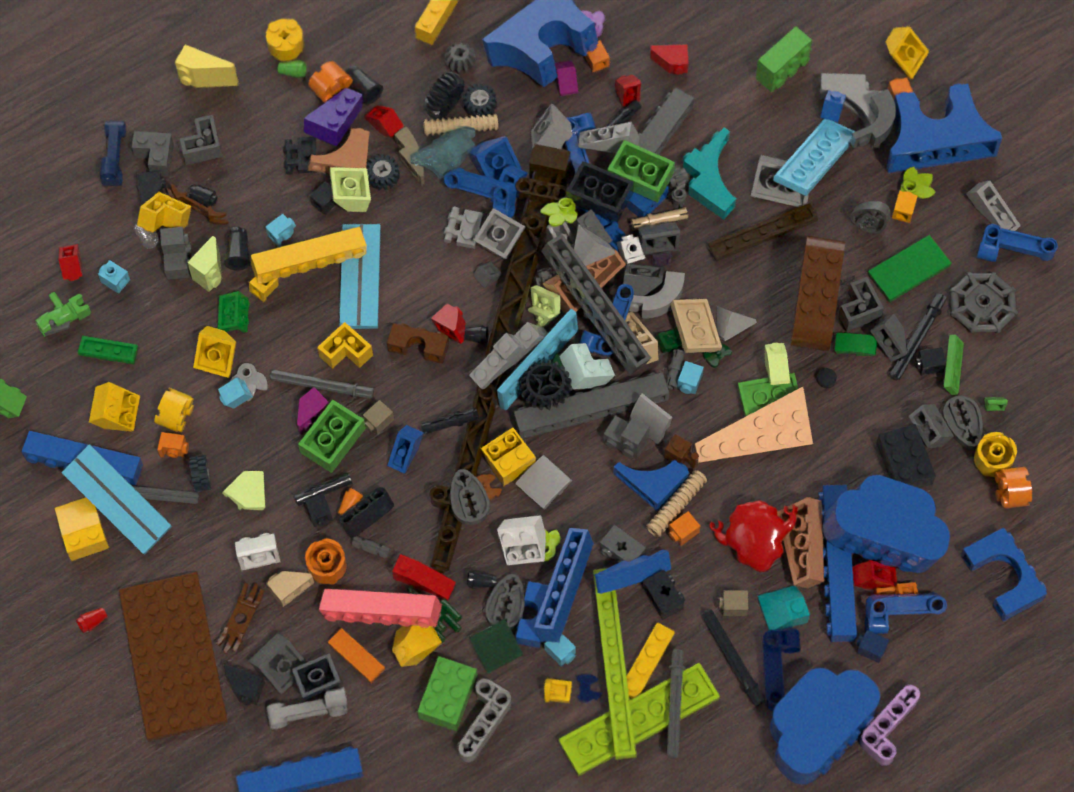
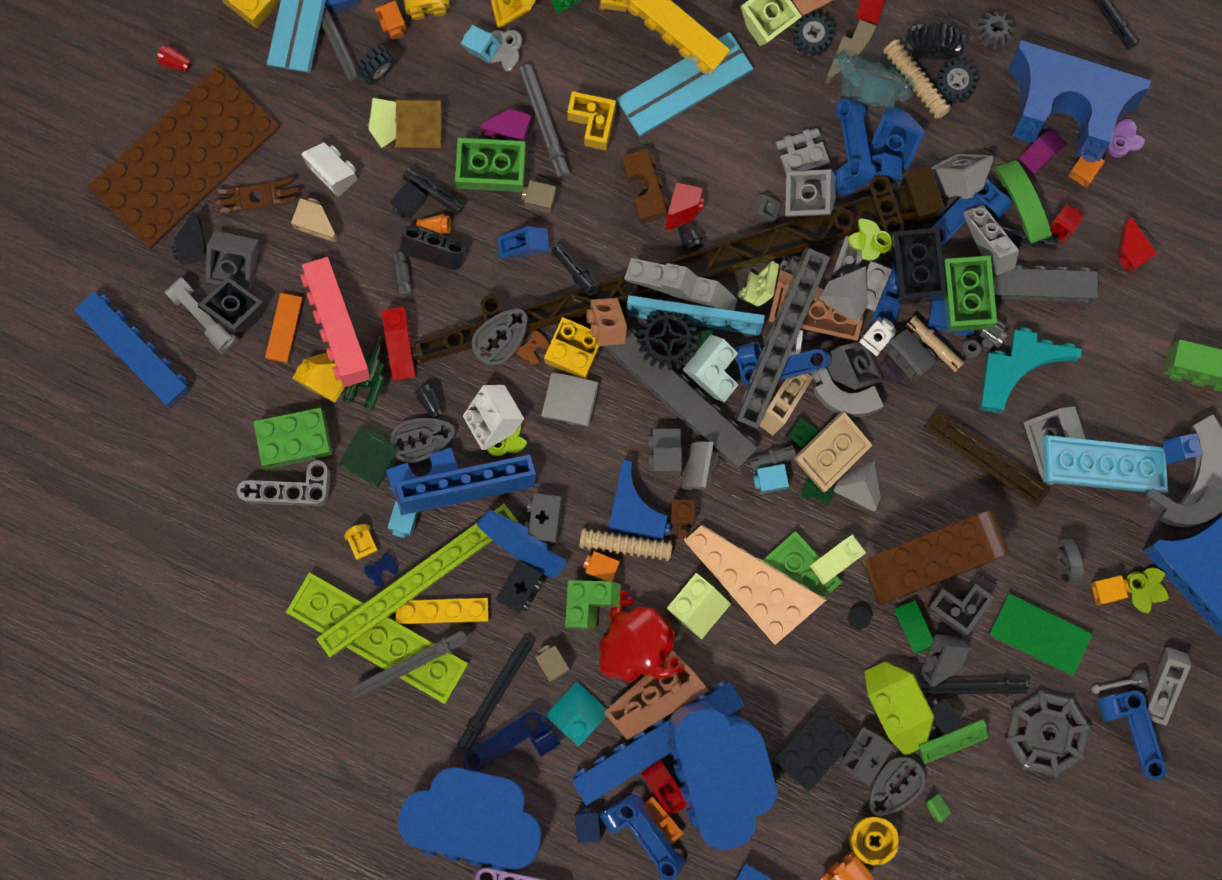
camera: 60 degrees right, 15 degrees up
(265, 469) = (418, 123): none -> pearl gold slope
(321, 552) = (346, 235): orange brick -> none
(506, 417) = (607, 322): none -> nougat brick
(596, 103) = (1025, 200): none -> bright green slope
(699, 548) = (584, 600): none -> bright green brick
(751, 479) = (698, 606): none -> yellowish green slope
(907, 382) = (899, 706): none -> lime wedge
(978, 224) = (1138, 680): none -> hinge

